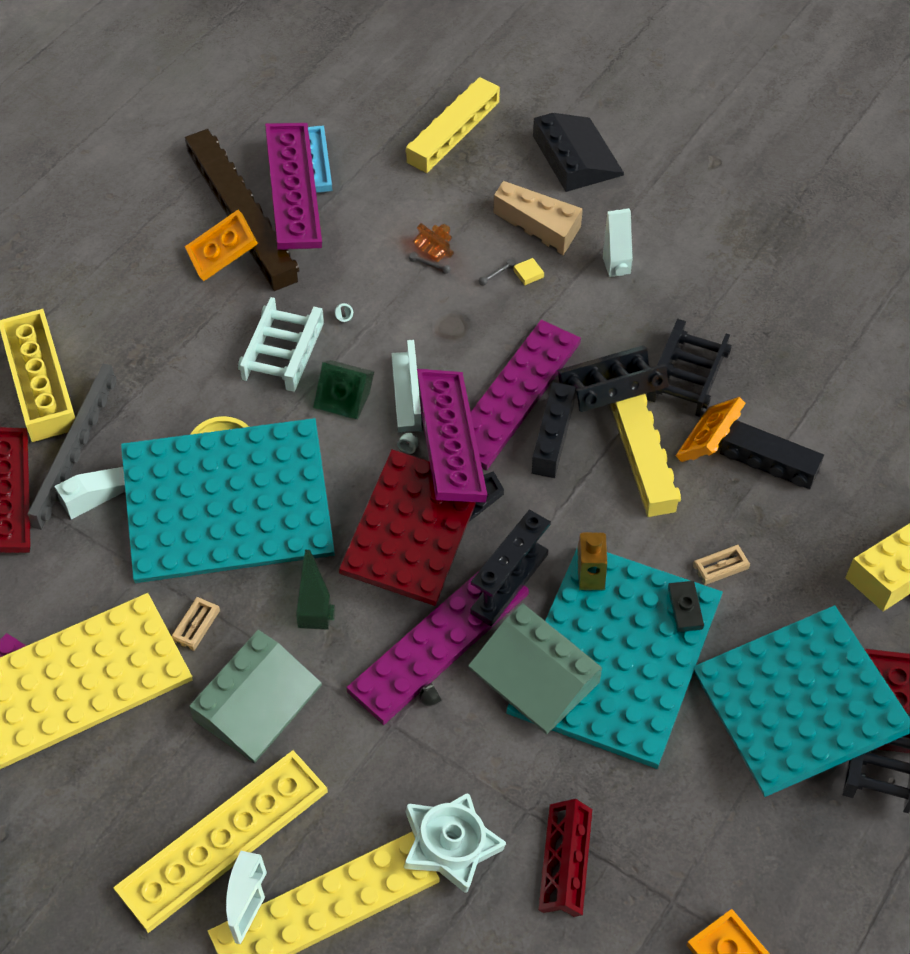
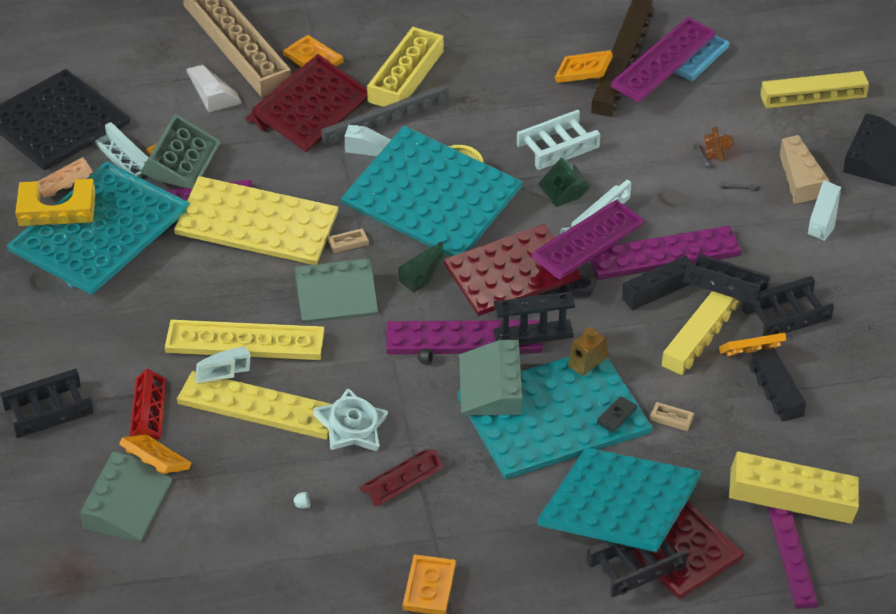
camera: 45 degrees right, 10 degrees down
(348, 312) = (612, 145): light aqua hinge -> none
(528, 271) = (757, 197): light yellow tile -> none

